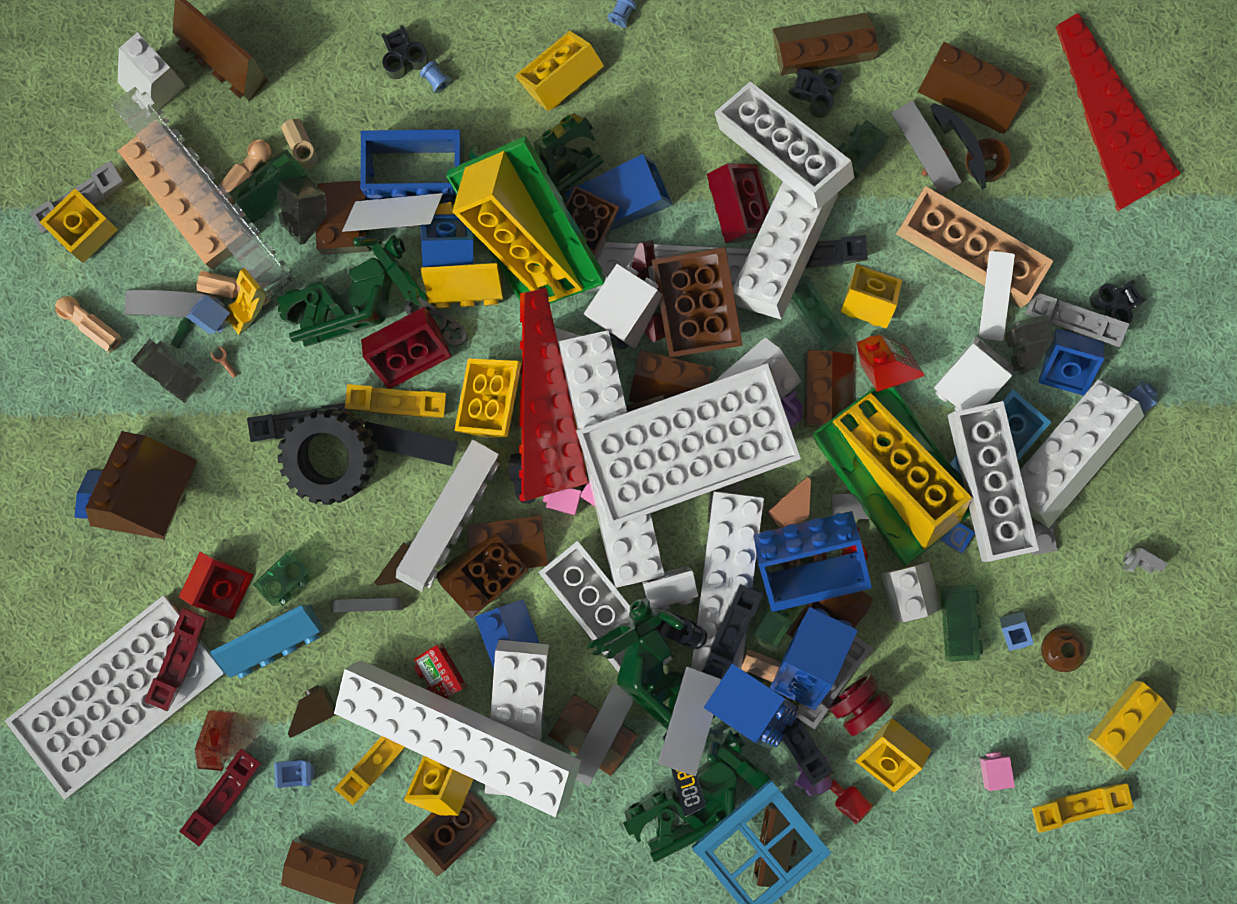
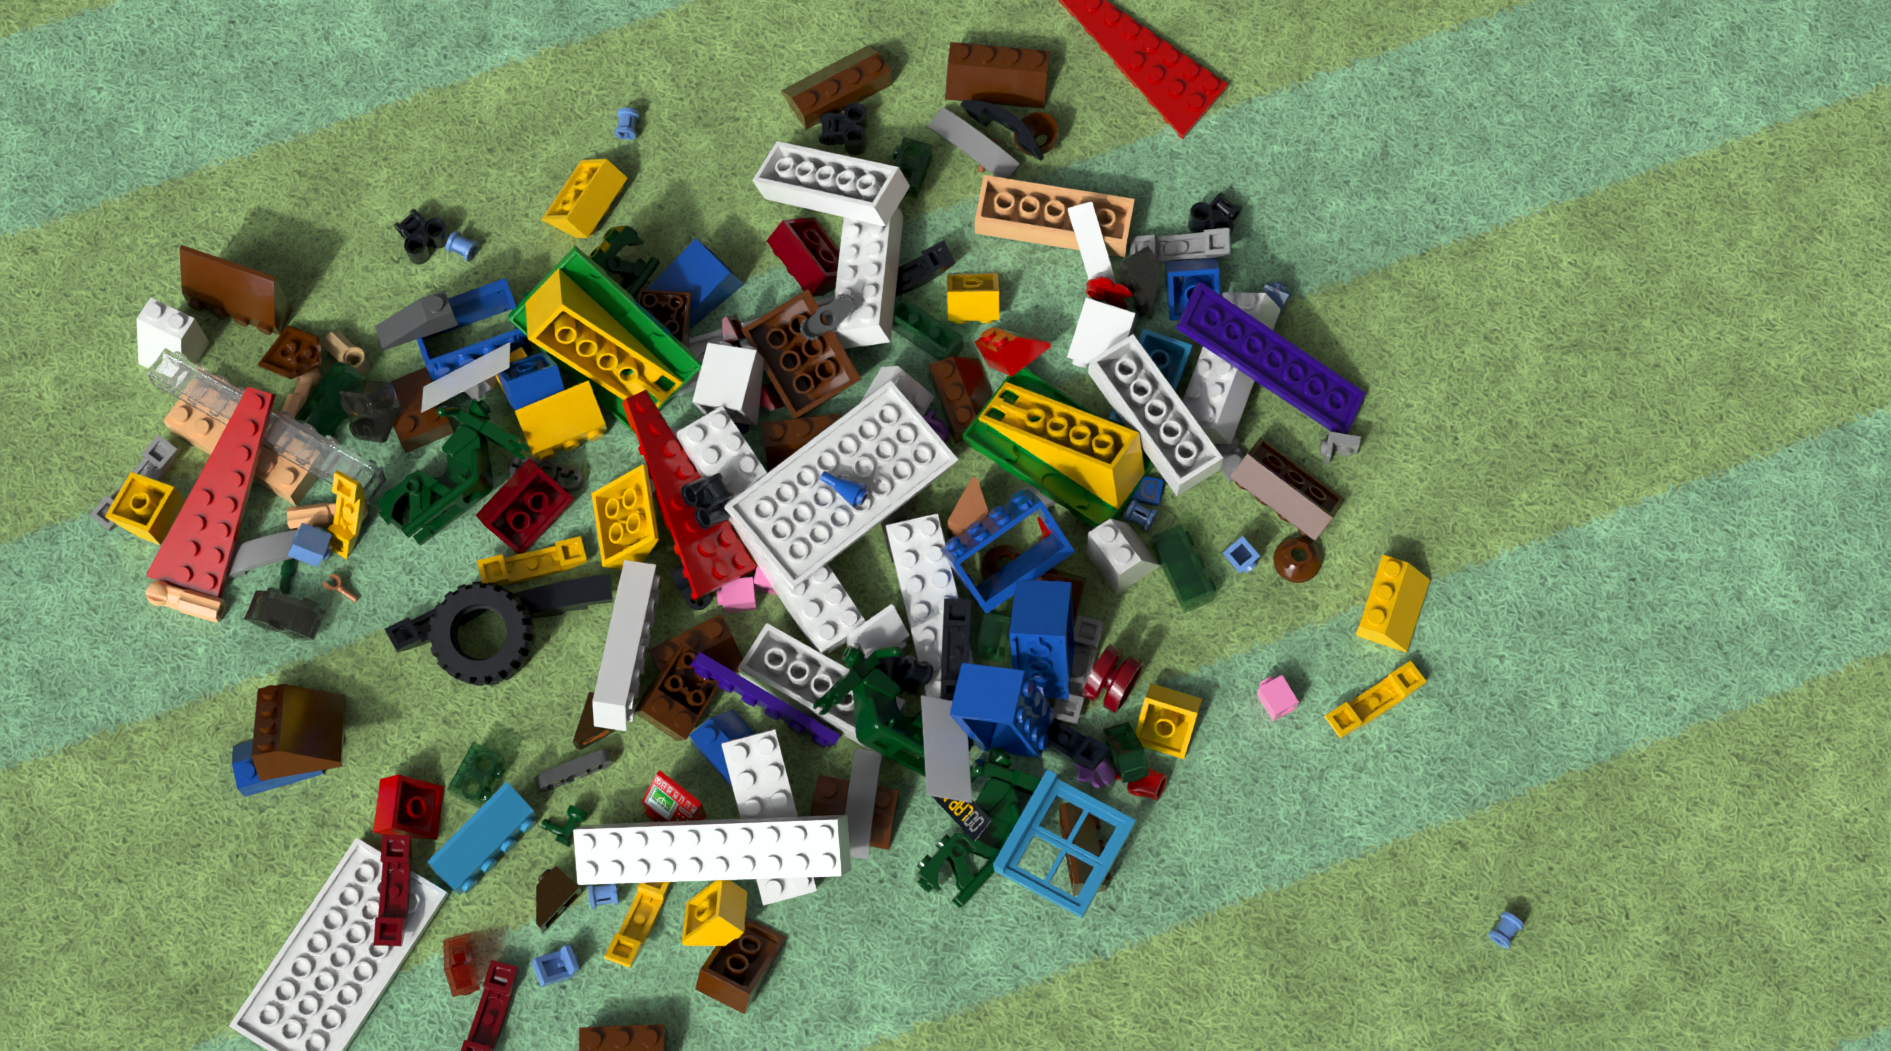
camera: 20 degrees left, 15 degrees down
(125, 264) = (208, 526): none -> wing
(252, 127) = (293, 354): none -> reddish brown tile
(340, 656) = (565, 833): none -> dark green piece
(353, 728) = (603, 895): none -> medium blue bush
(365, 144) = (417, 320): none -> dark grey slope
(542, 604) = (755, 695): none -> dark purple plate
(564, 414) = (709, 498): none -> black piece
(692, 457) = (851, 491): none -> blue cone
(748, 275) = (840, 307): none -> dark grey piece
(847, 776) = (1126, 752): none -> clear green brick
(940, 550) = (1136, 512): none -> medium blue bush
(990, 335) = (1104, 289): none -> red plate
(1082, 586) = (1287, 489): none -> slope
(1116, 466) = (1270, 359): none -> dark purple plate

